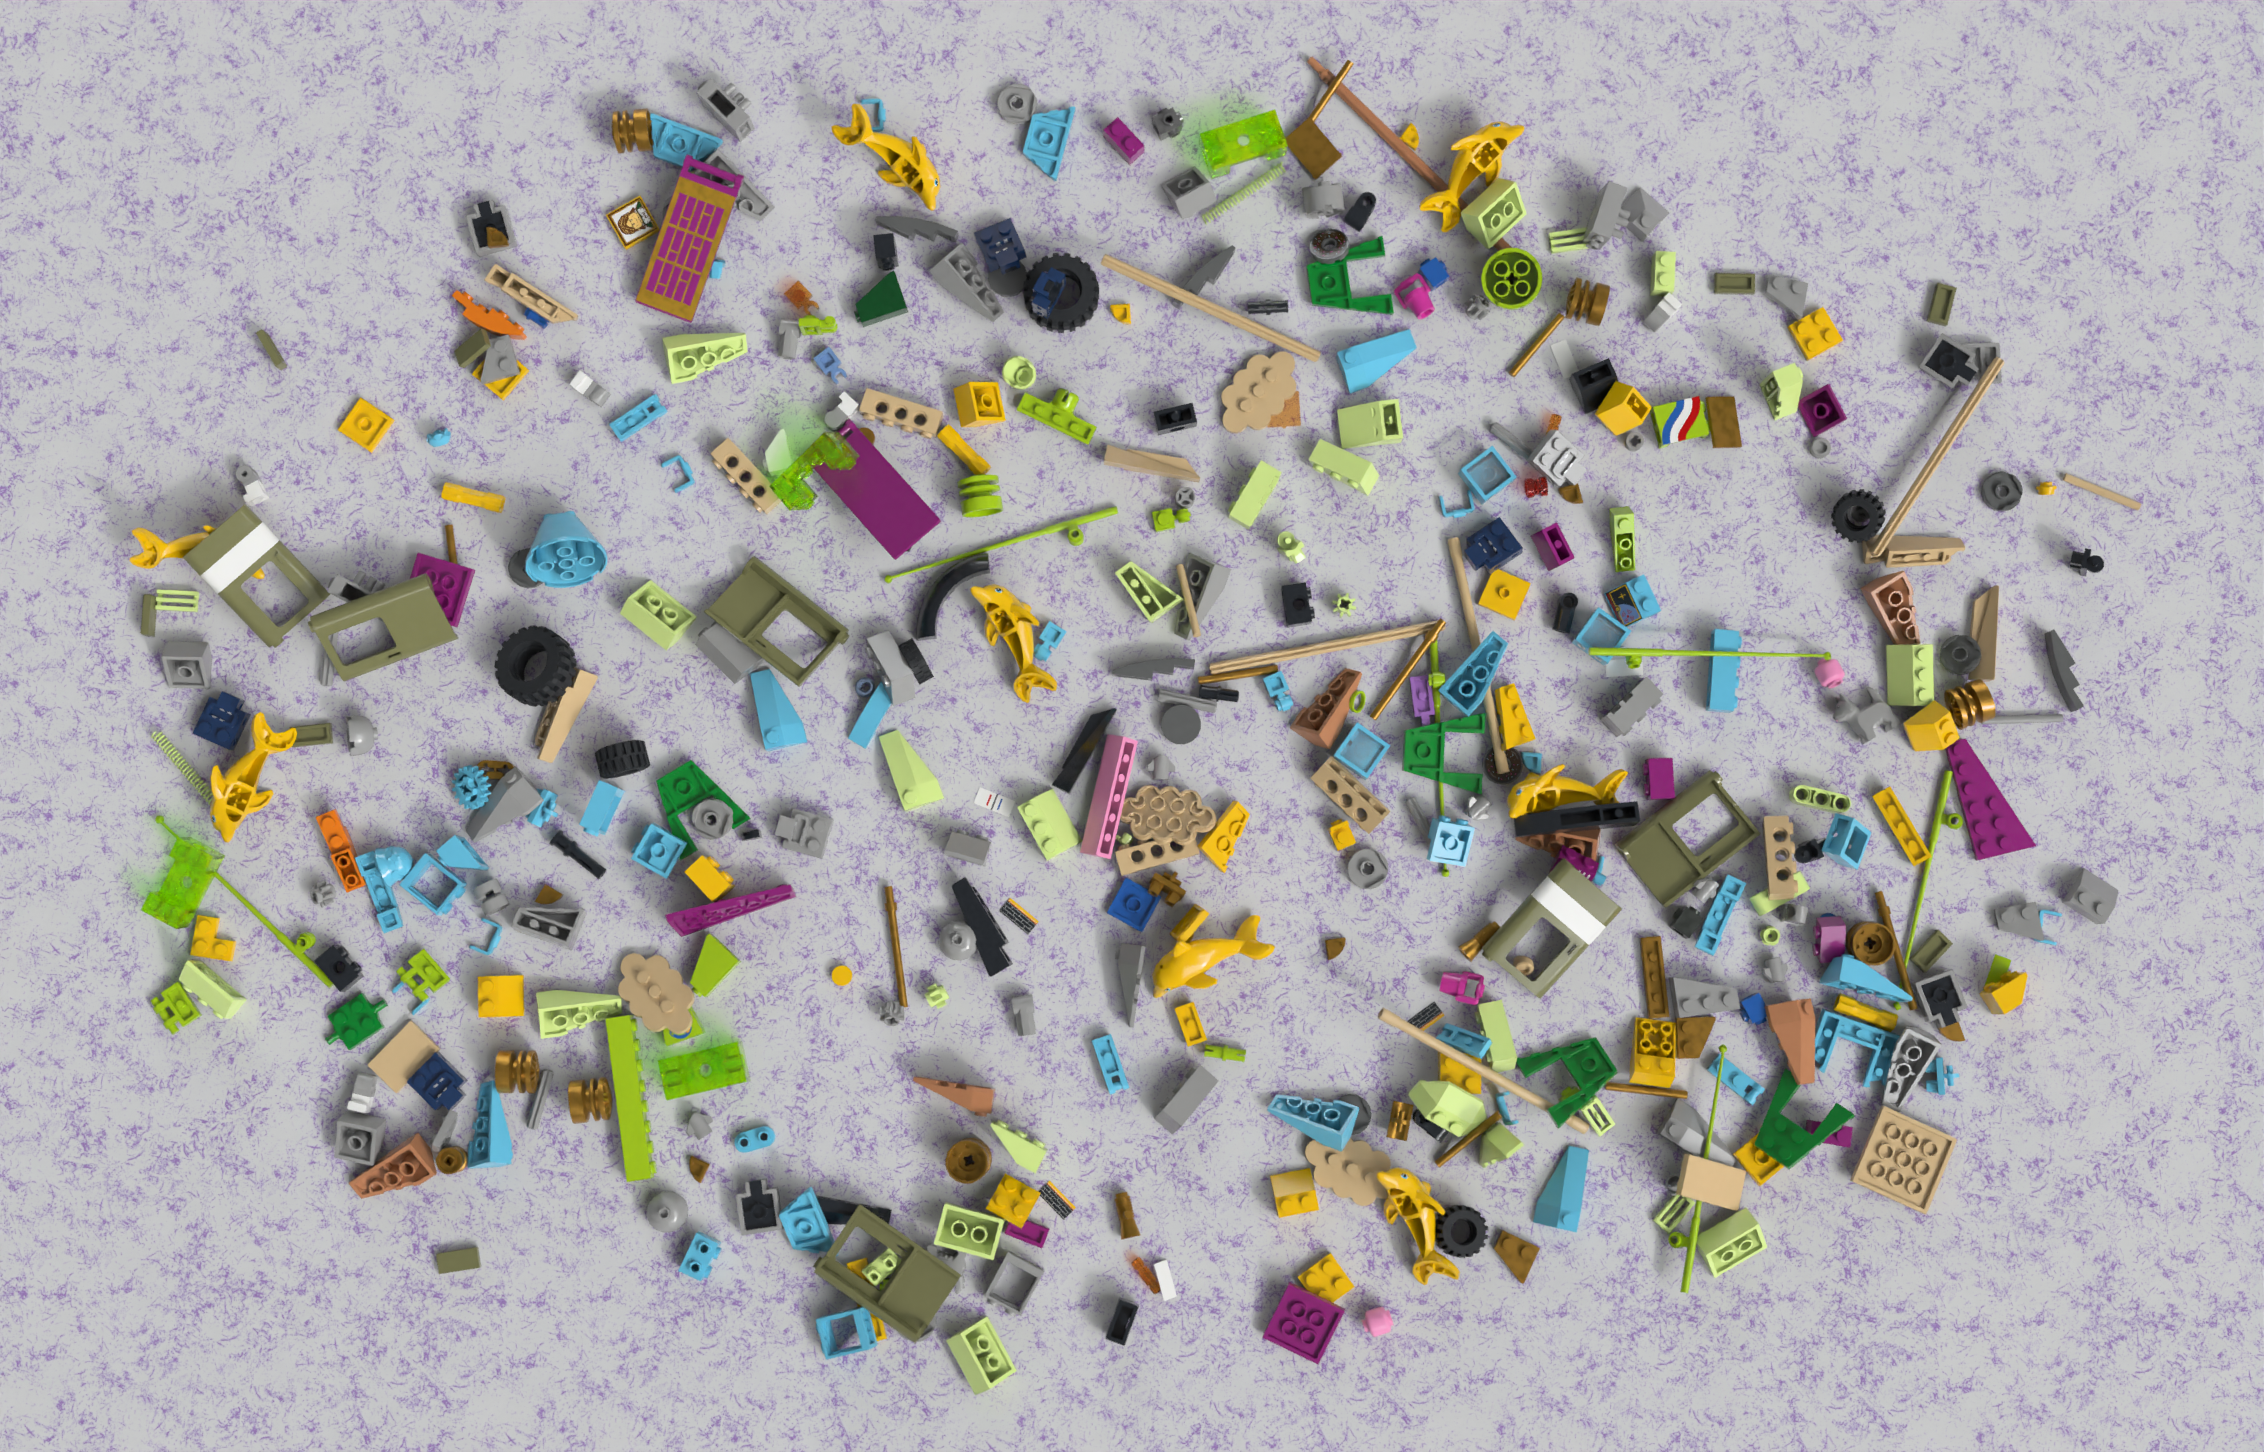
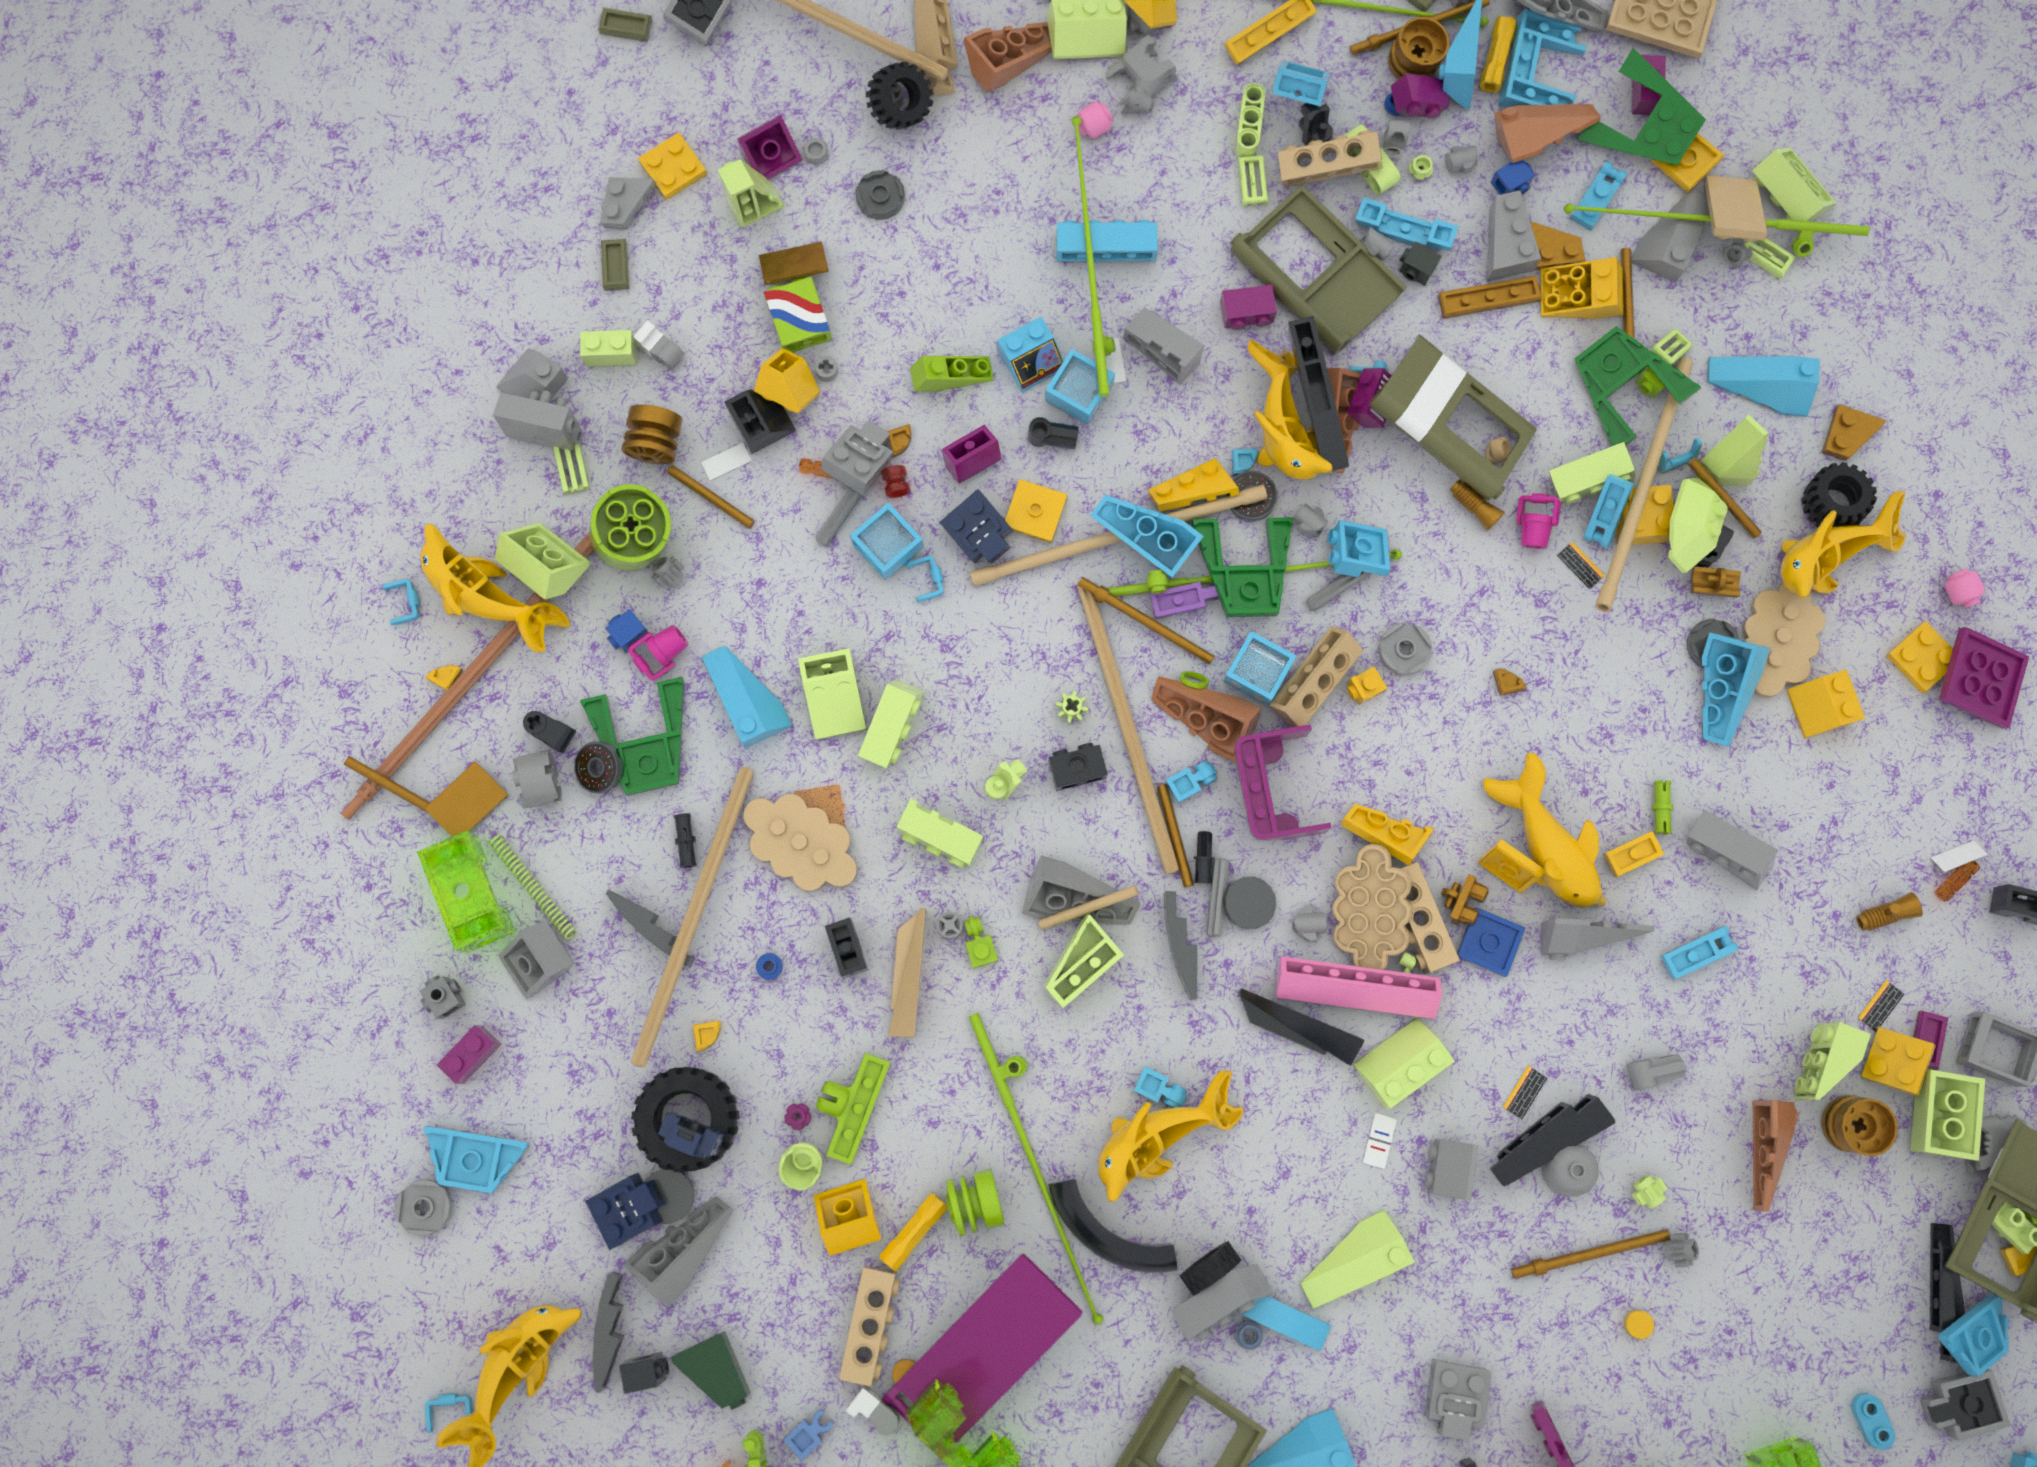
camera: 95 degrees left, 5 degrees down
(1059, 378) = (805, 1116): none -> magenta plate
(1167, 368) = (769, 975): none -> blue plate
(1268, 737) = (1251, 756): none -> magenta windscreen
(1475, 115) = (412, 599): none -> medium azure piece
(1751, 797) = (1254, 200): none -> yellowish green tile
(1778, 496) = (880, 195): none -> dark grey tile

